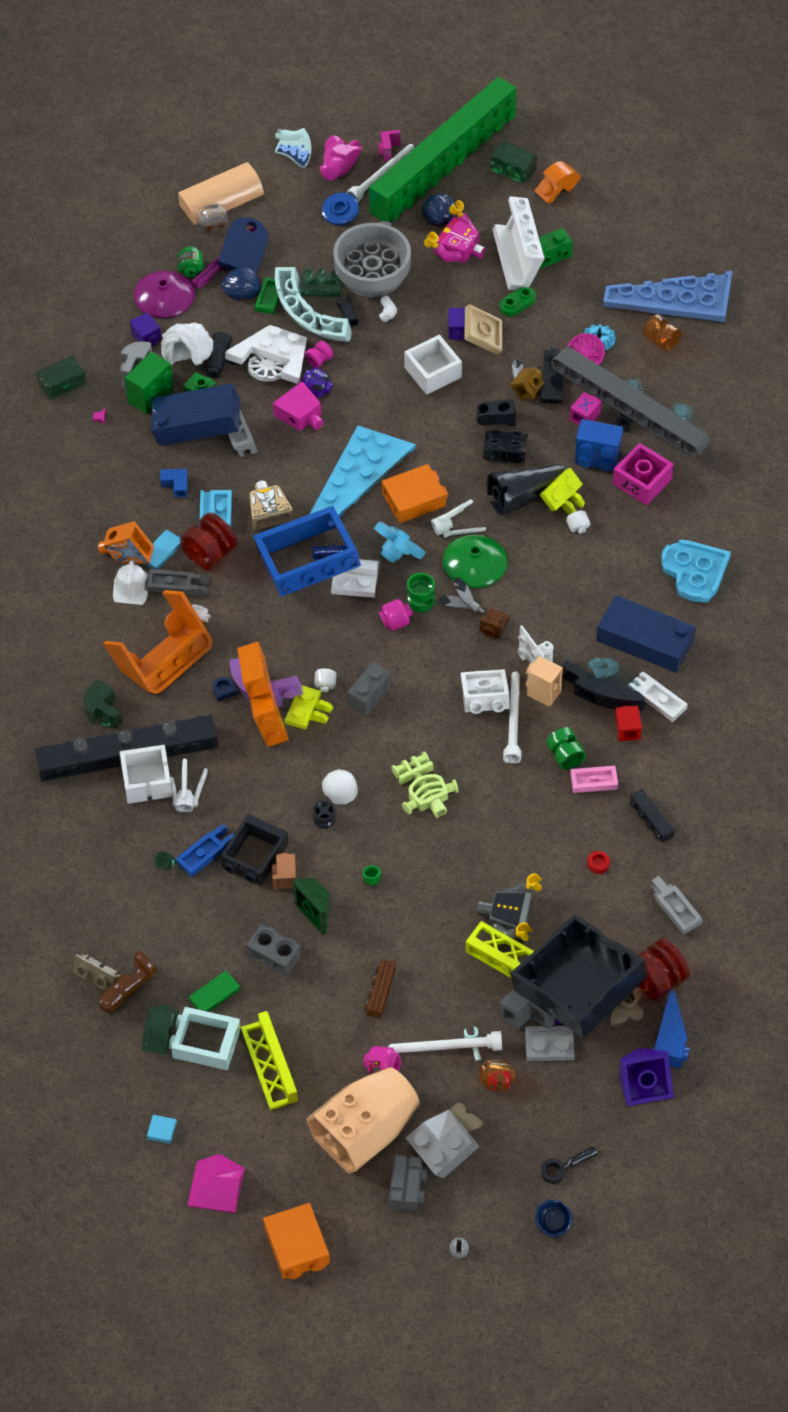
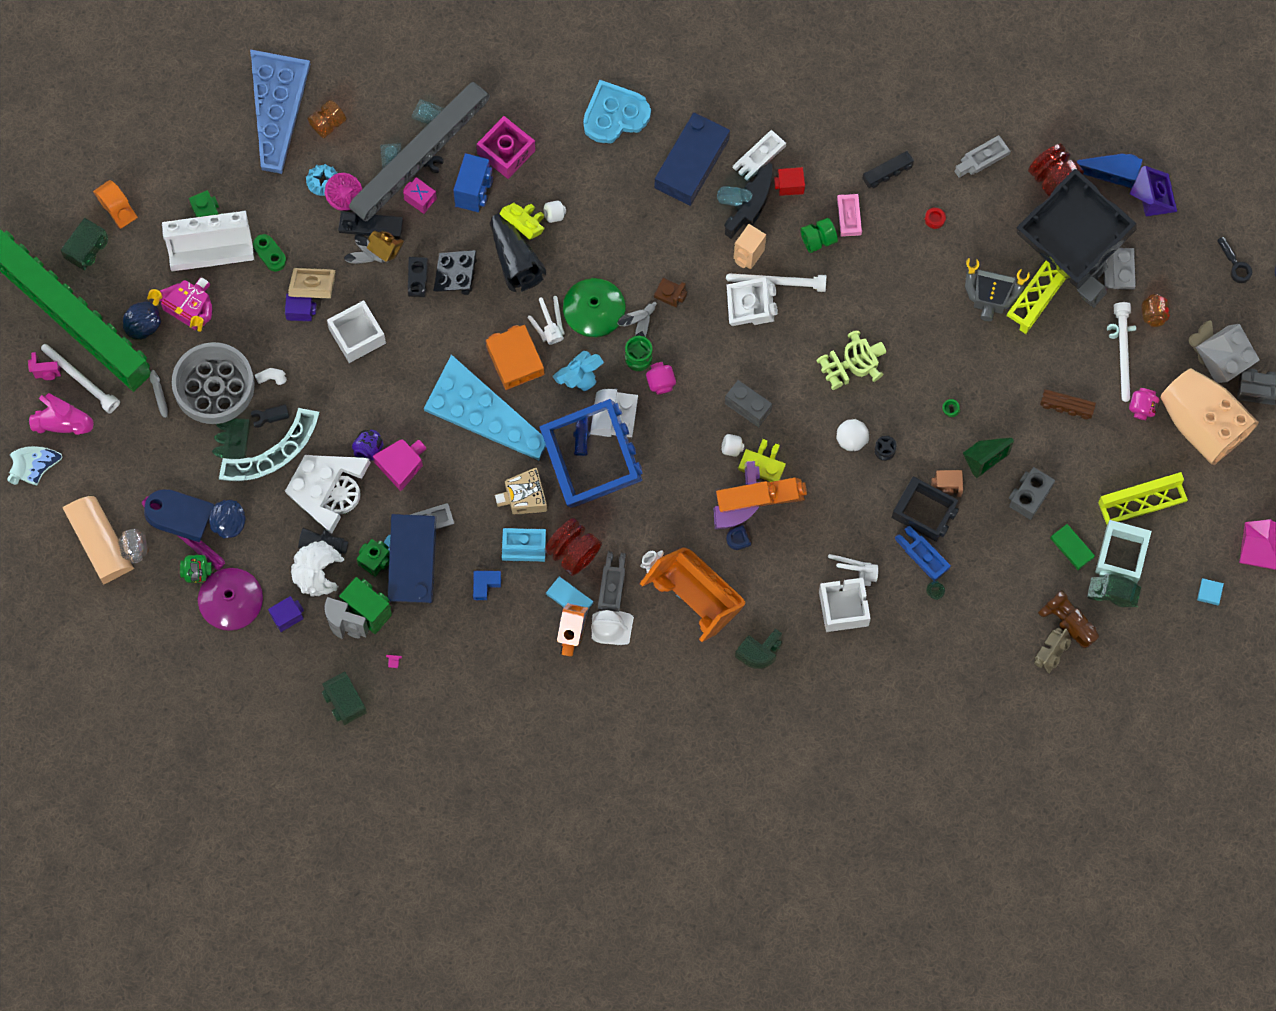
camera: 90 degrees left, 15 degrees up
(104, 751) = (810, 626): black piece -> none
(268, 297) = (242, 492): green tile -> none
(317, 355) = (330, 442): dark pink wheel -> none
(340, 209) = (128, 419): blue wheel -> none
(530, 651) = (722, 253): white hinge -> none

